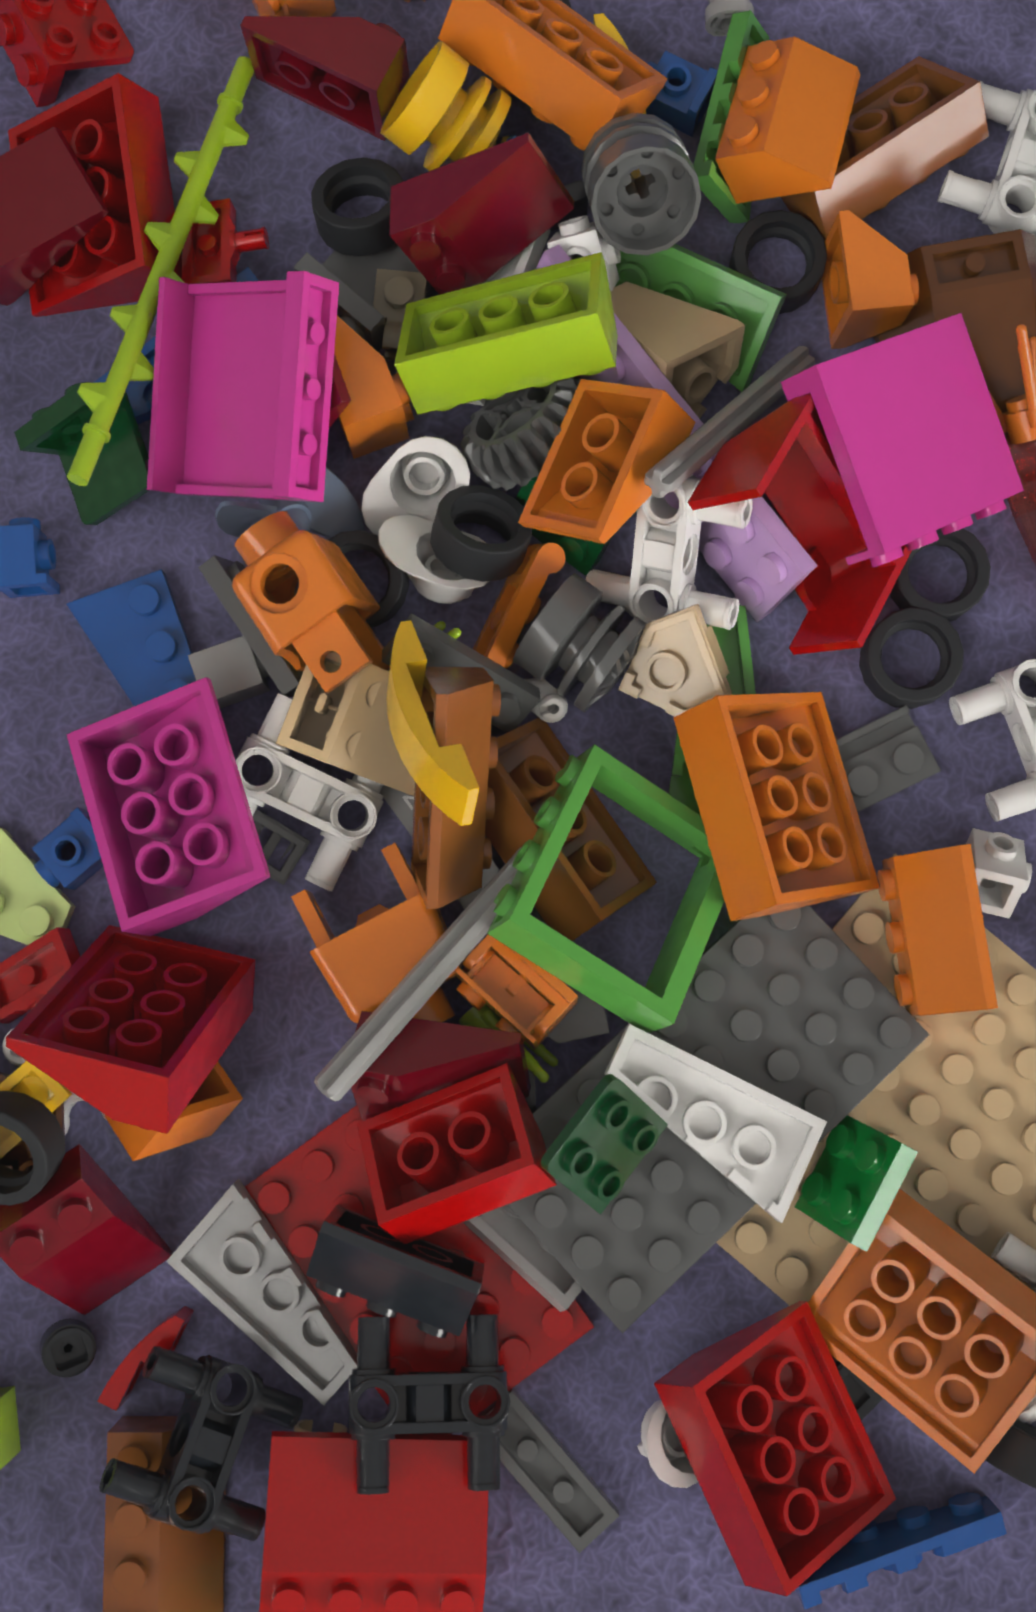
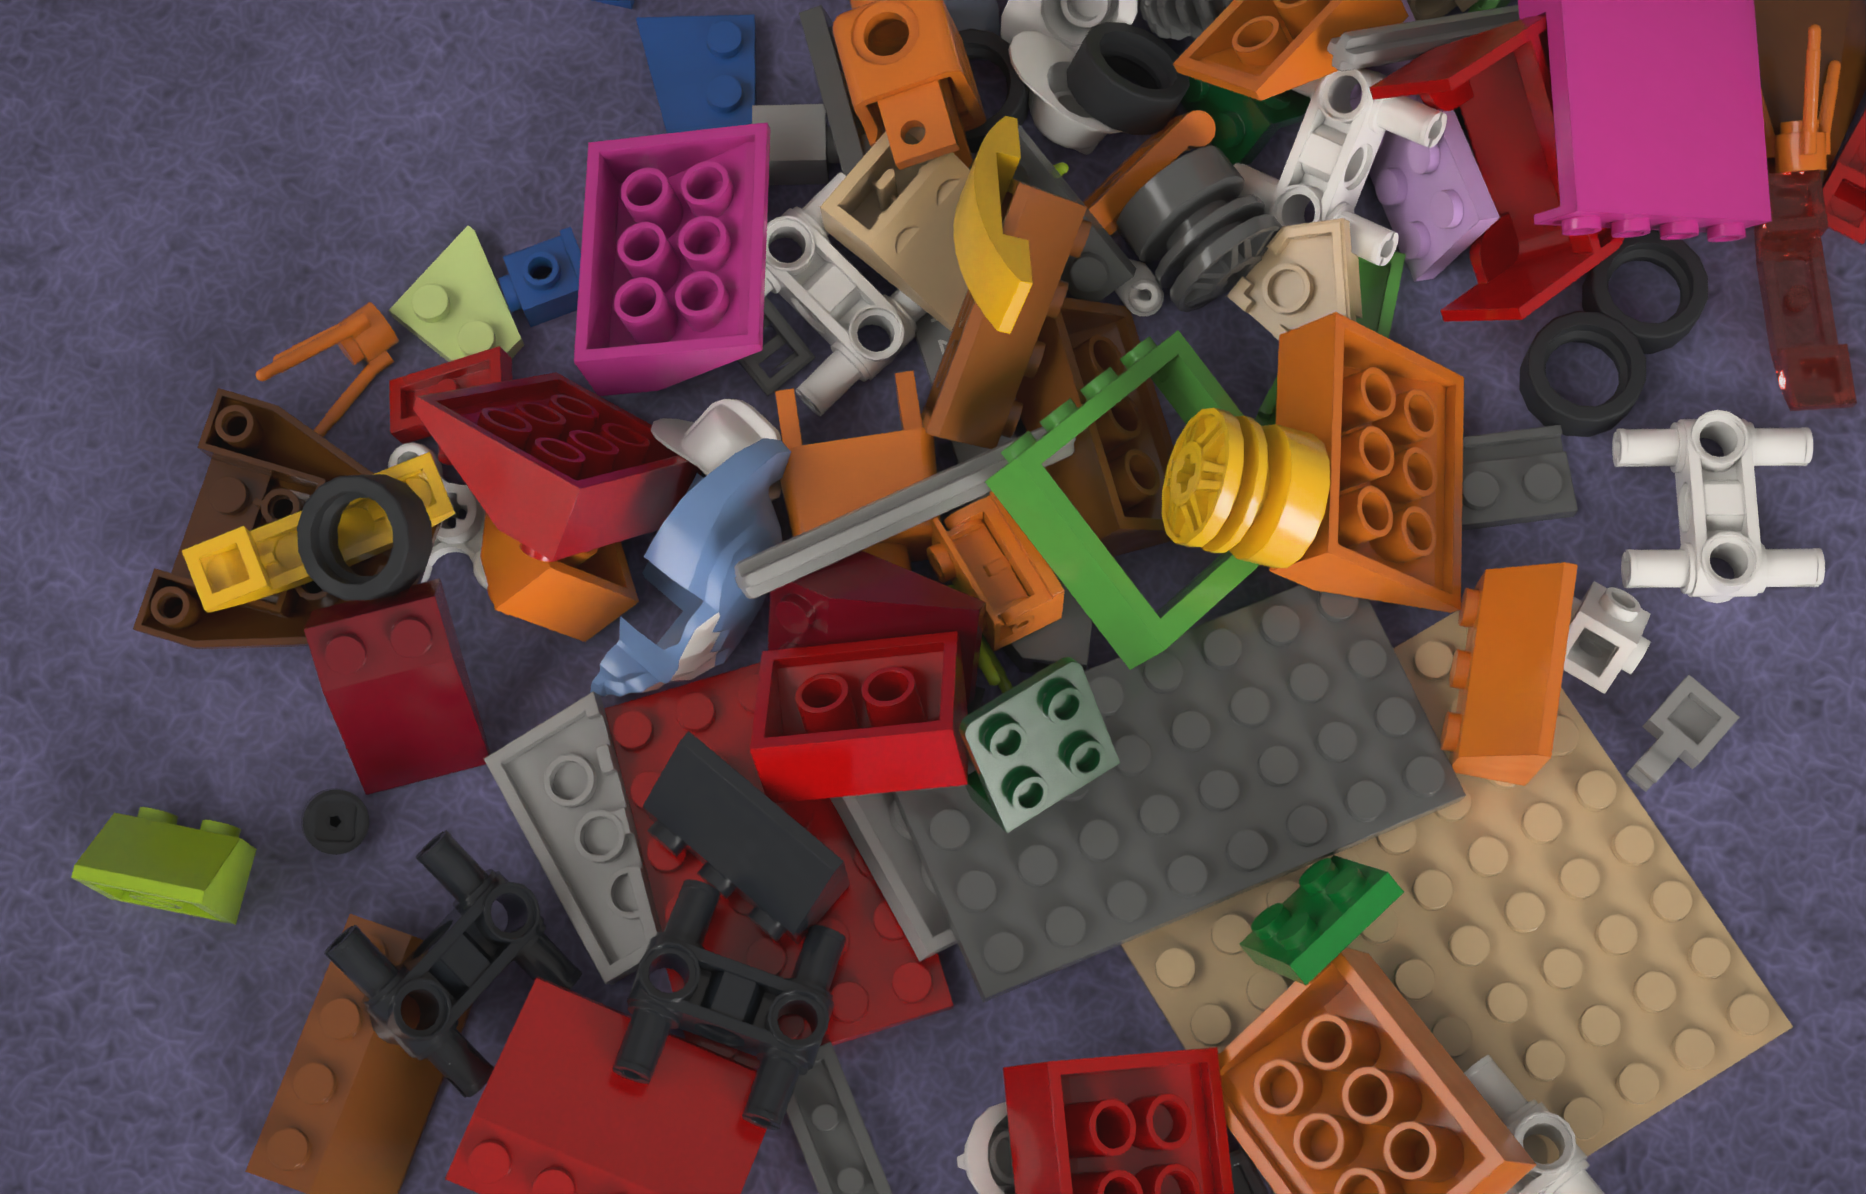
camera: 20 degrees right, 10 degrees down
(123, 1380) = (398, 864): red slope -> none
(266, 949) = (717, 435): none -> white piece
(280, 1052) = (693, 565): none -> medium blue animal
(695, 873) = (1245, 488): none -> yellow wheel
(730, 1123) = (1192, 795): white wing -> none

